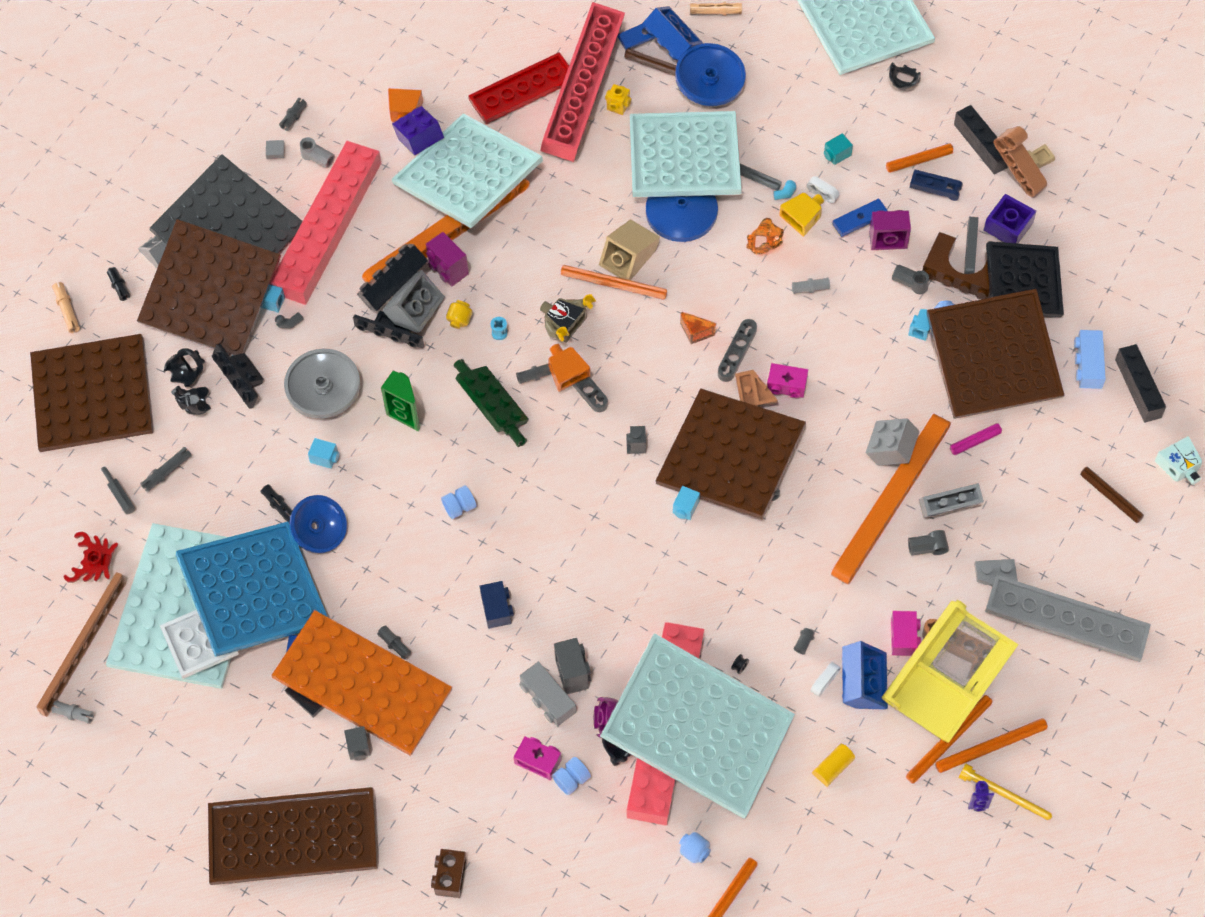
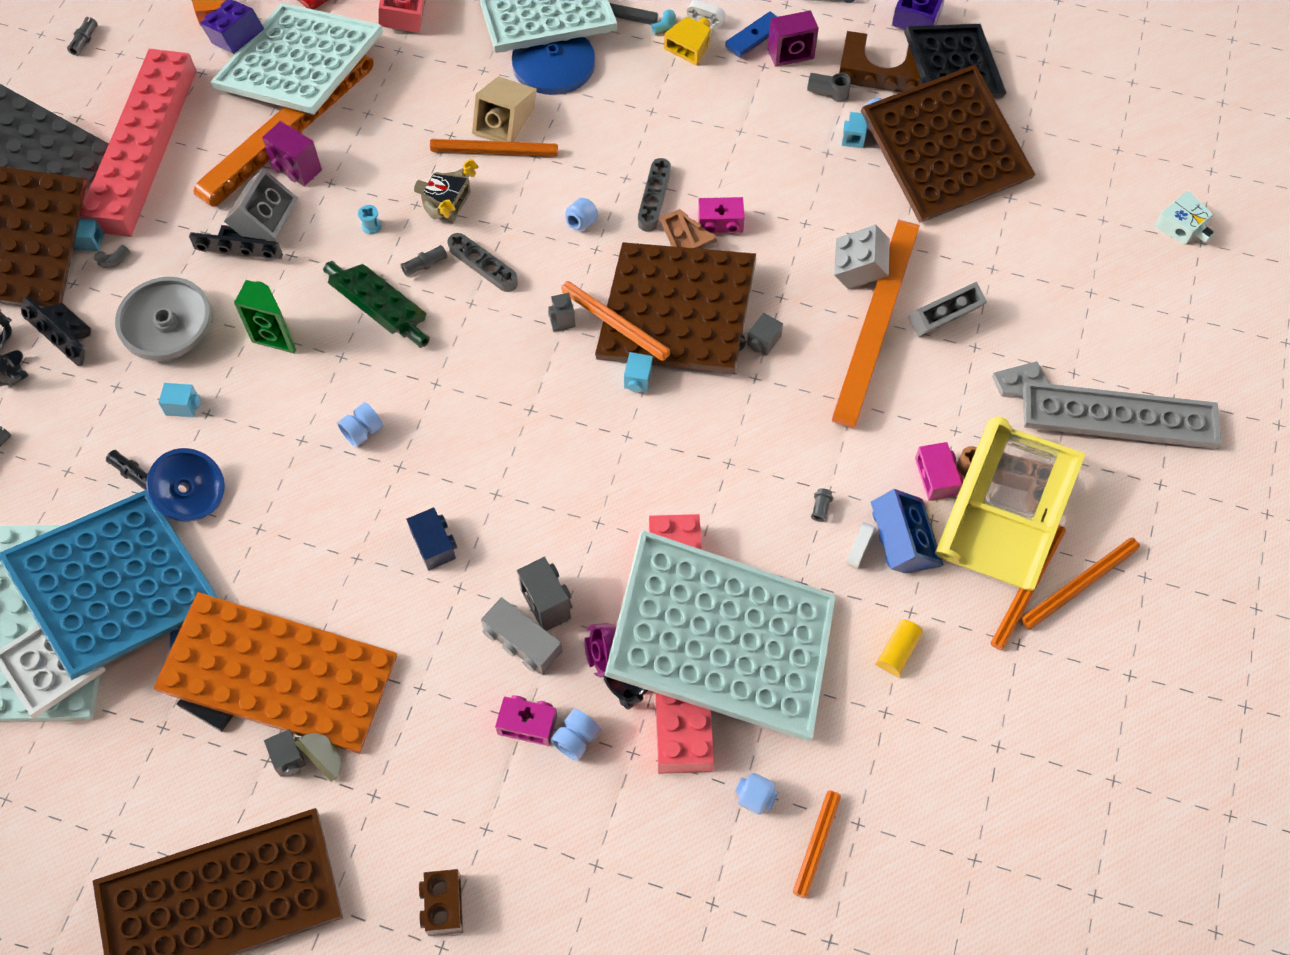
camera: 15 degrees left, 0 degrees up
(274, 149) = (66, 76): light grey tile -> none
(316, 152) = (111, 70): light grey piece -> none
(383, 748) = (321, 753): none -> olive tile
(392, 276) = (229, 183): black brick -> none
(393, 641) = (310, 611): dark grey axle -> none
(459, 314) = (318, 212): yellow head -> none
(567, 367) = (460, 245): orange torso -> none
(672, 357) = (581, 214): none -> light blue head
(677, 456) = (616, 321): none -> orange axle
(696, 327) = (602, 178): clear orange slope -> none
(740, 664) = (752, 548): black bush -> none
(771, 232) = (660, 65): clear orange helmet -> none
(796, 491) = (764, 334): none -> dark grey brick
(810, 285) = (719, 112): light grey pin -> none
(932, 543) = (941, 361): dark grey piece -> none
(969, 774) = (1064, 623): yellow piece -> none
(971, 245) = (884, 40): dark grey beam -> none
(975, 439) = (951, 239): dark pink axle -> none
(981, 797) = (1093, 648): dark purple hinge -> none
(1090, 359) = (1051, 132): light blue brick -> none
(1110, 493) = (1122, 270): reddish brown axle -> none
(1140, 383) = (1114, 147): black brick -> none

